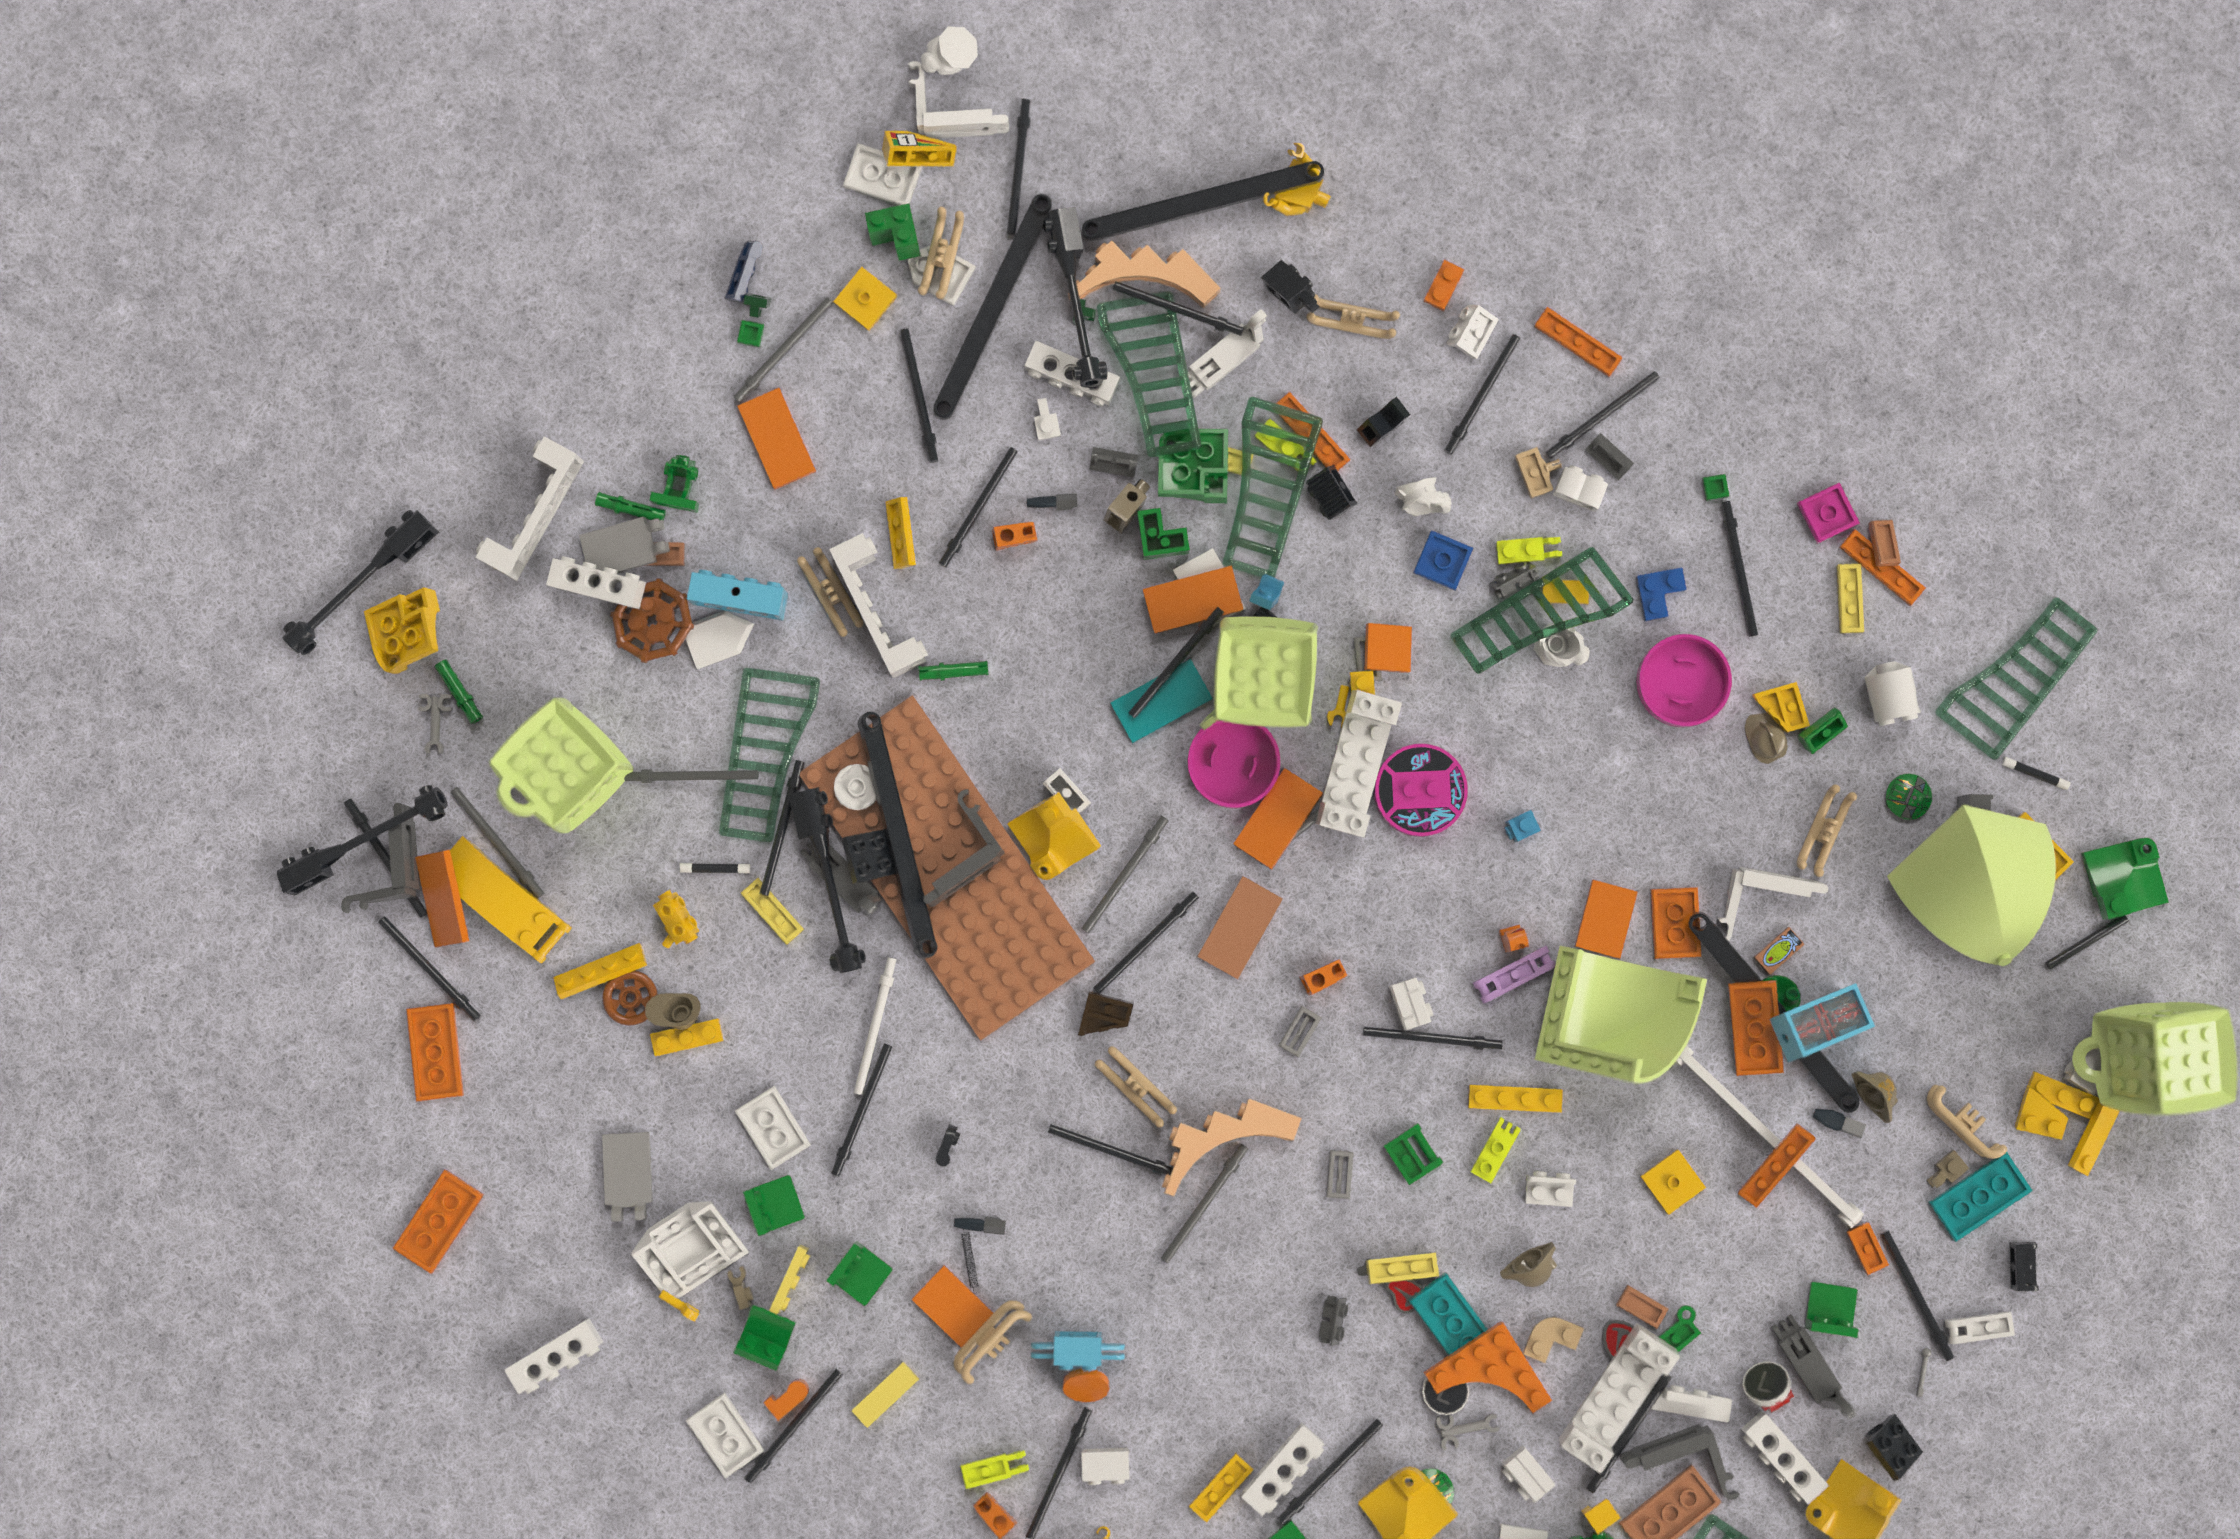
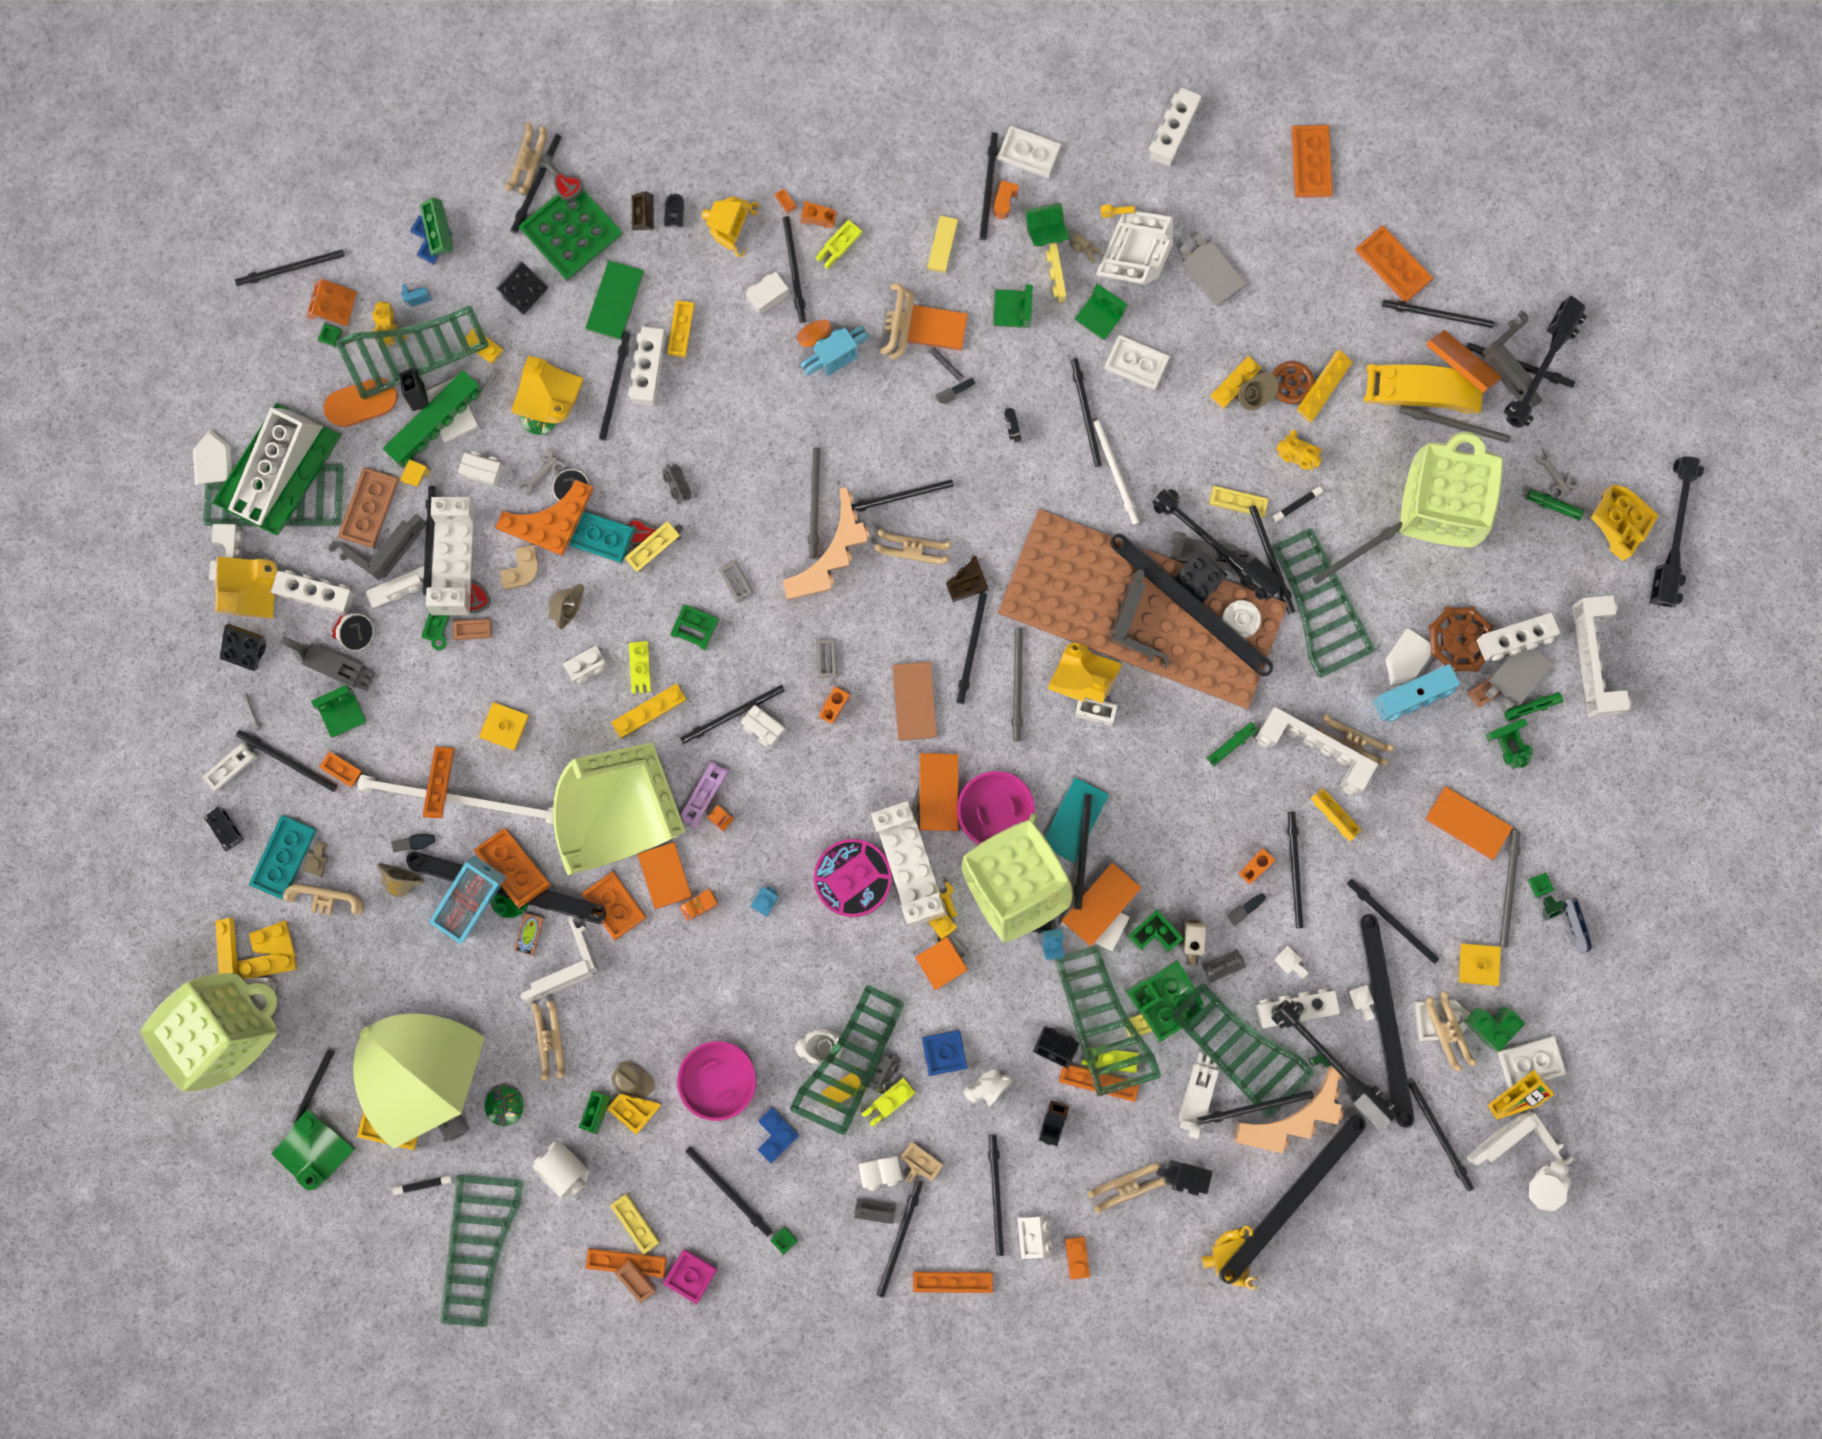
camera: 155 degrees right, 5 degrees down
(1002, 341) = (1361, 1000): none -> white plate
(1590, 865) = (699, 905): none -> orange leg

